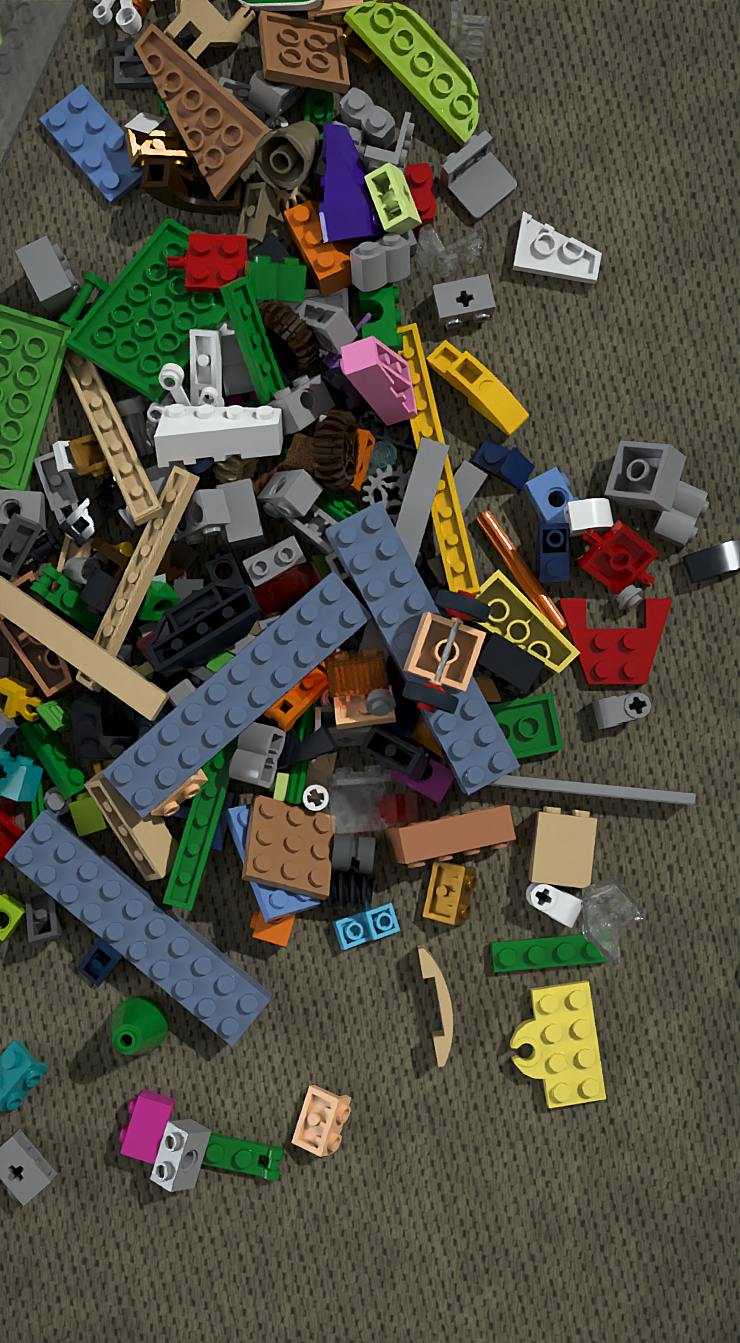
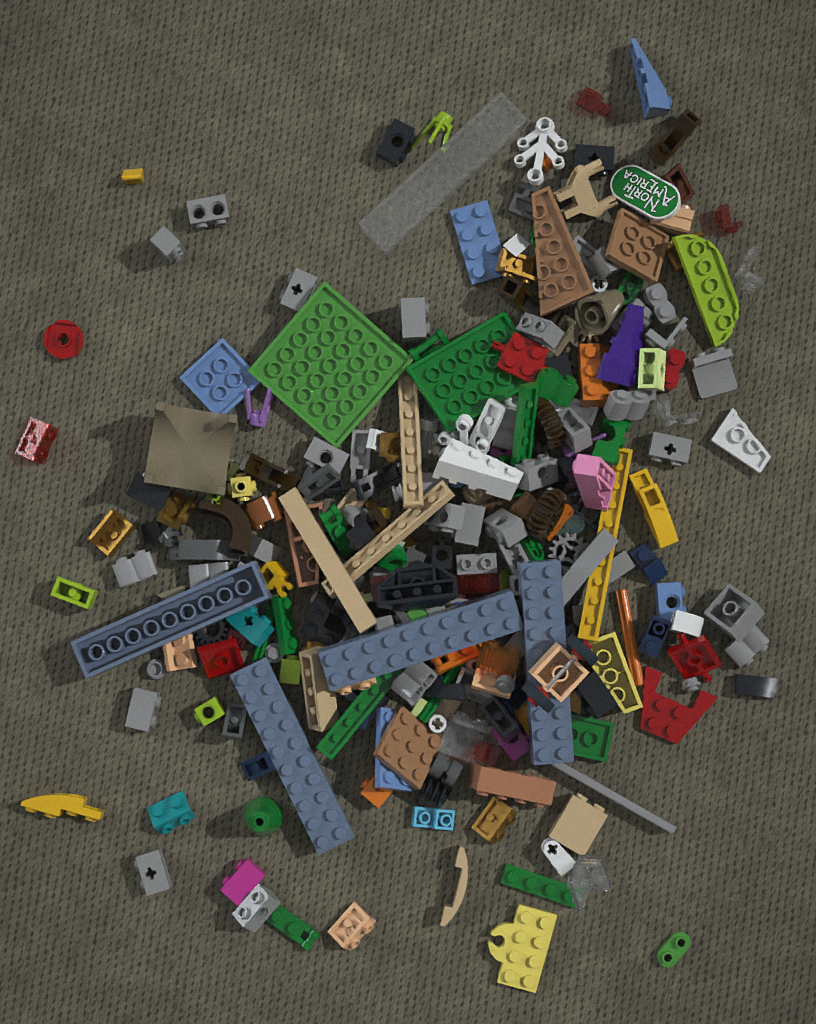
camera: 20 degrees right, 0 degrees up
(57, 714) = (300, 600): bright green slope -> none
(224, 215) = (540, 330): none -> light grey brick
(616, 710) = (650, 752): light grey piece -> none

